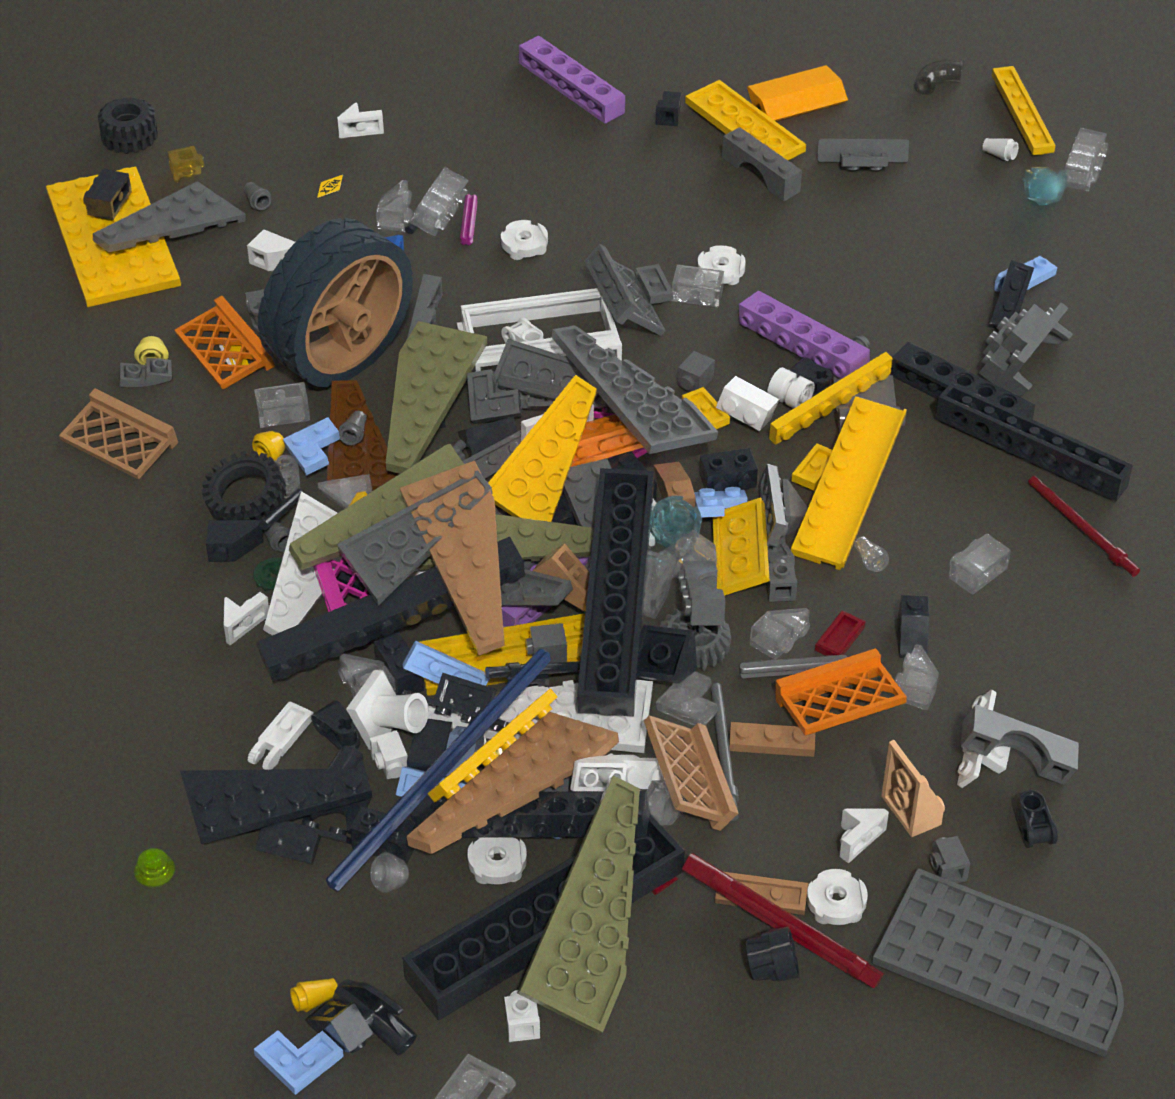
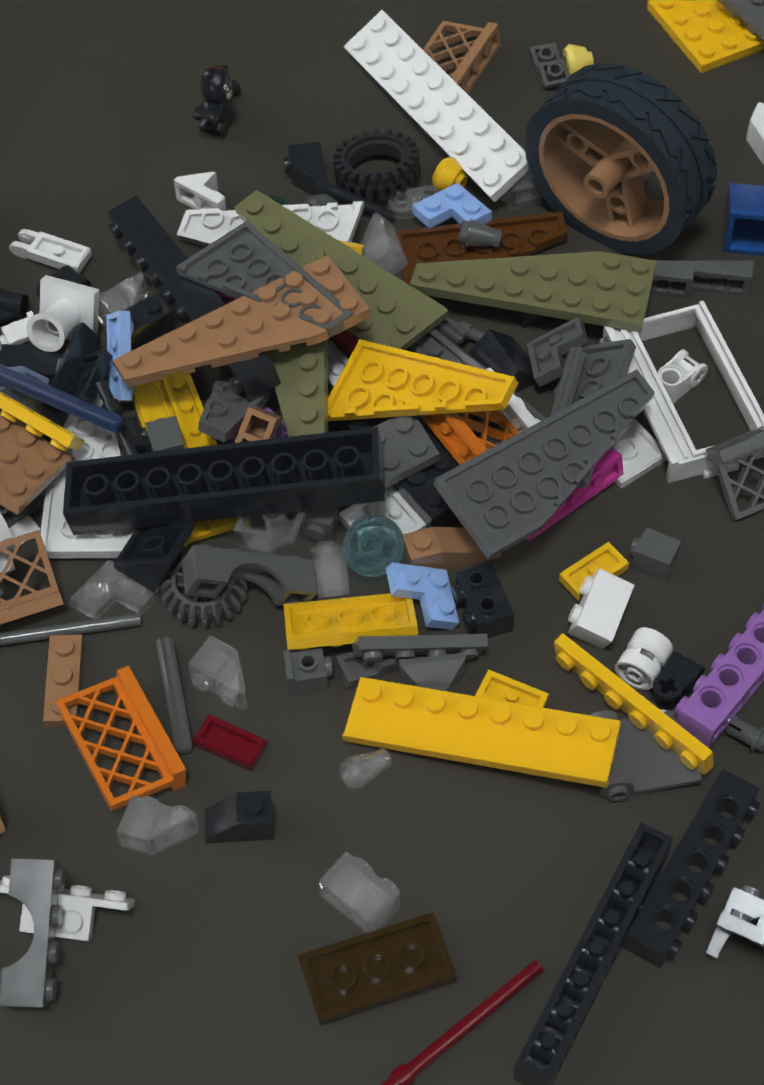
camera: 85 degrees right, 10 degrees up
(136, 594) = (218, 94): none -> black animal
(180, 440) = (439, 105): none -> white plate
(1038, 561) = (377, 968): none -> dark brown plate

